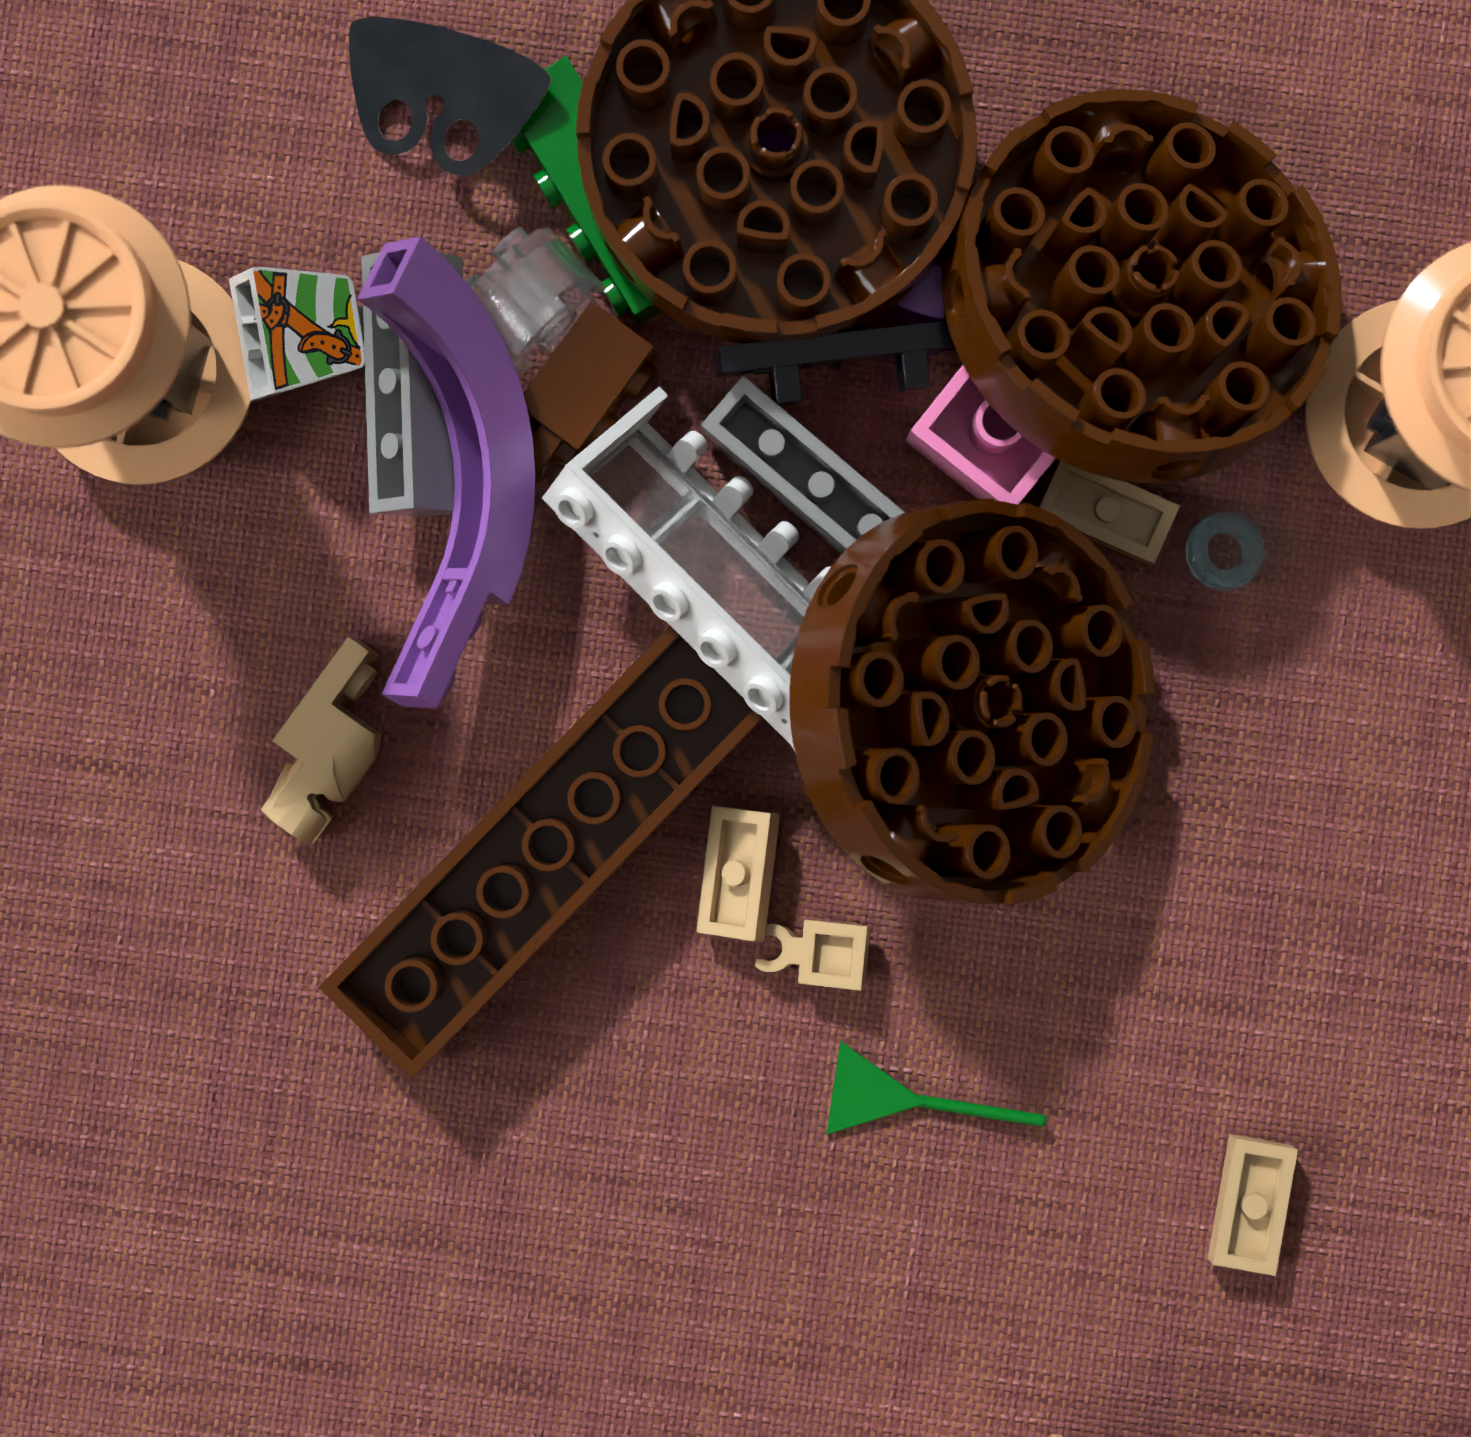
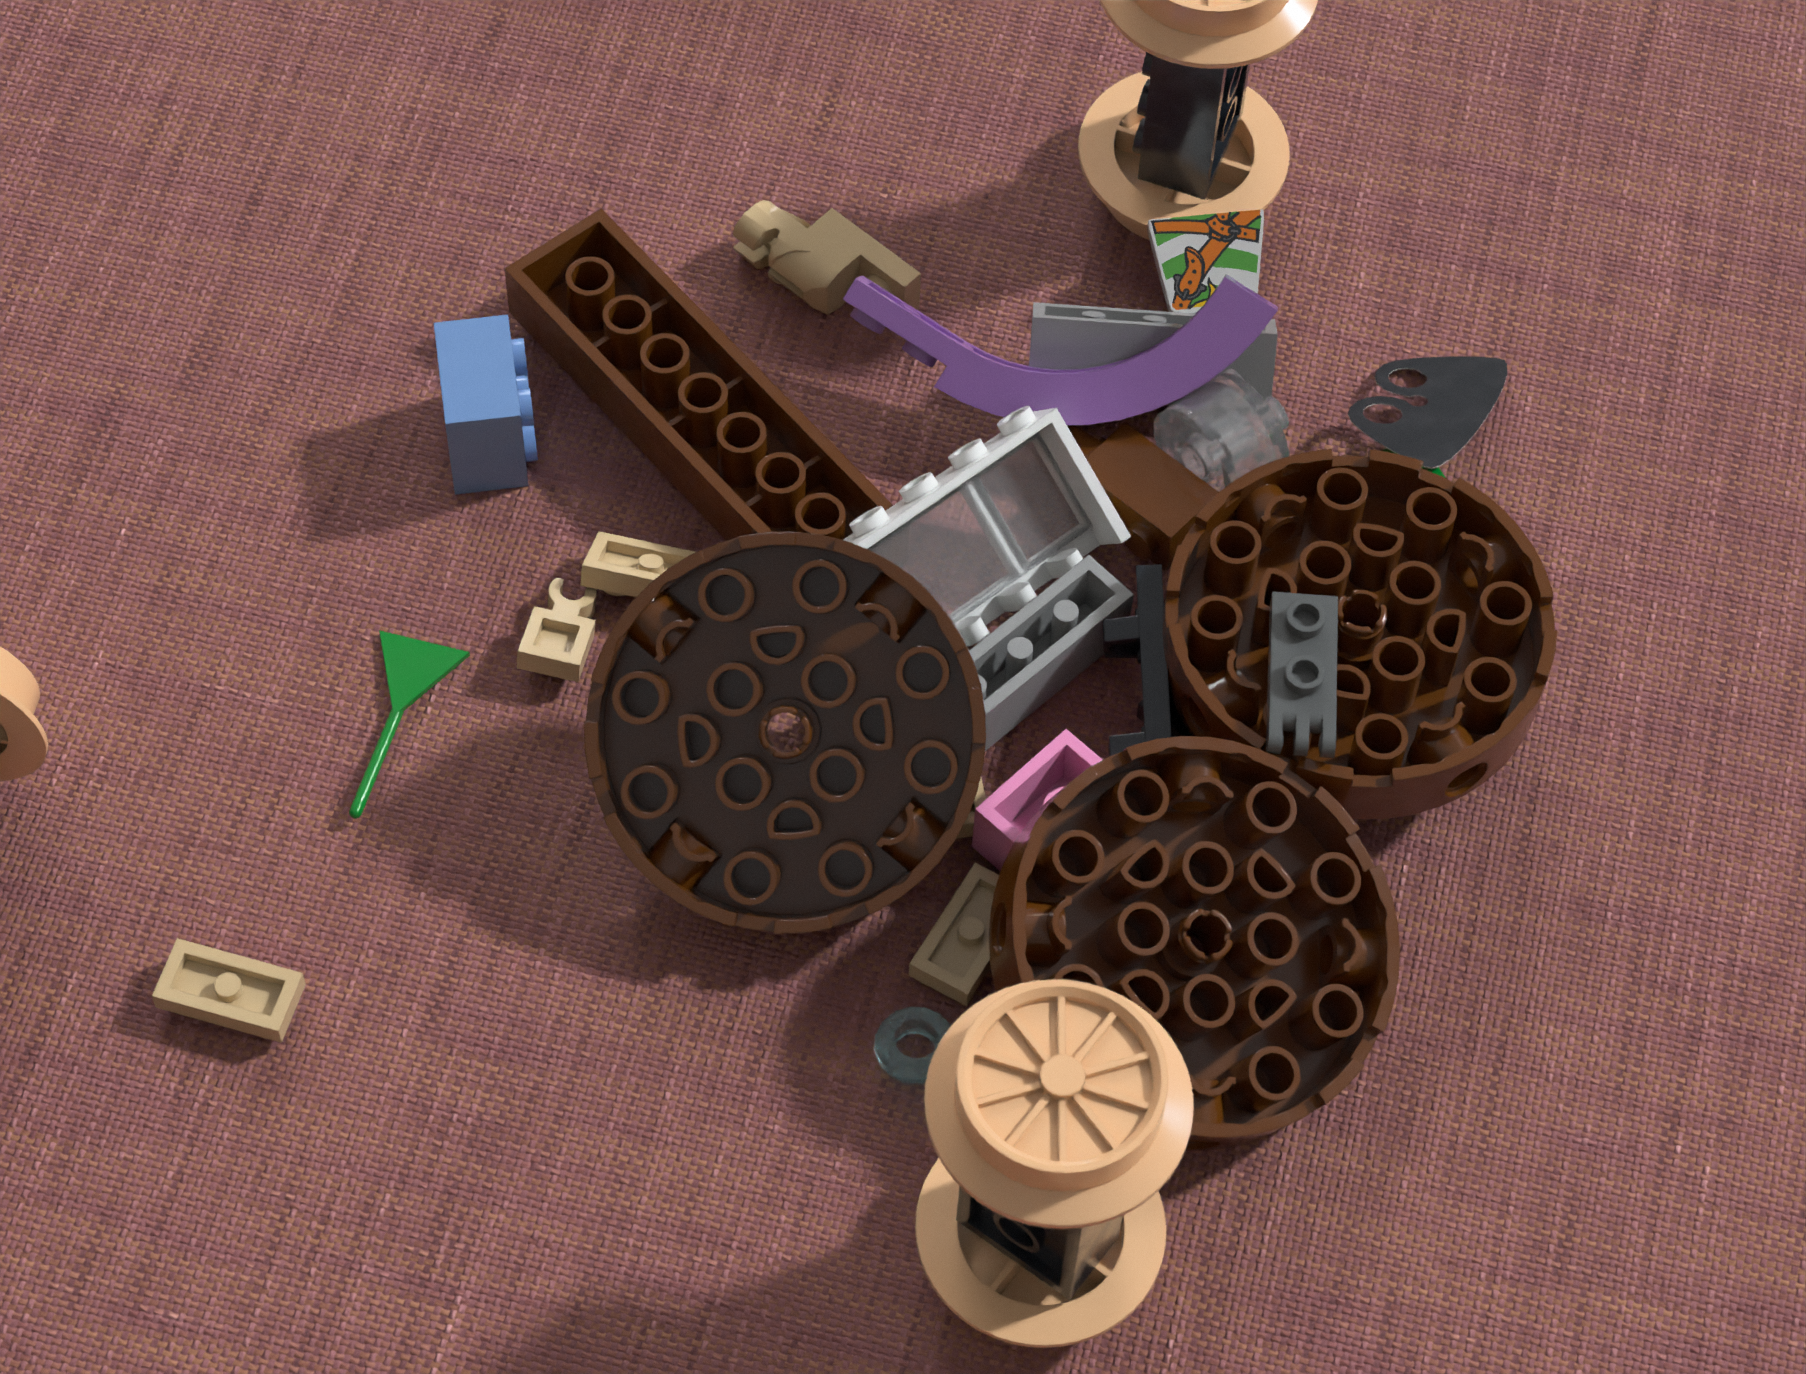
camera: 85 degrees right, 30 degrees down
(574, 1074) = (485, 403): none -> medium blue brick
(870, 186) = (1302, 672): none -> dark grey hinge

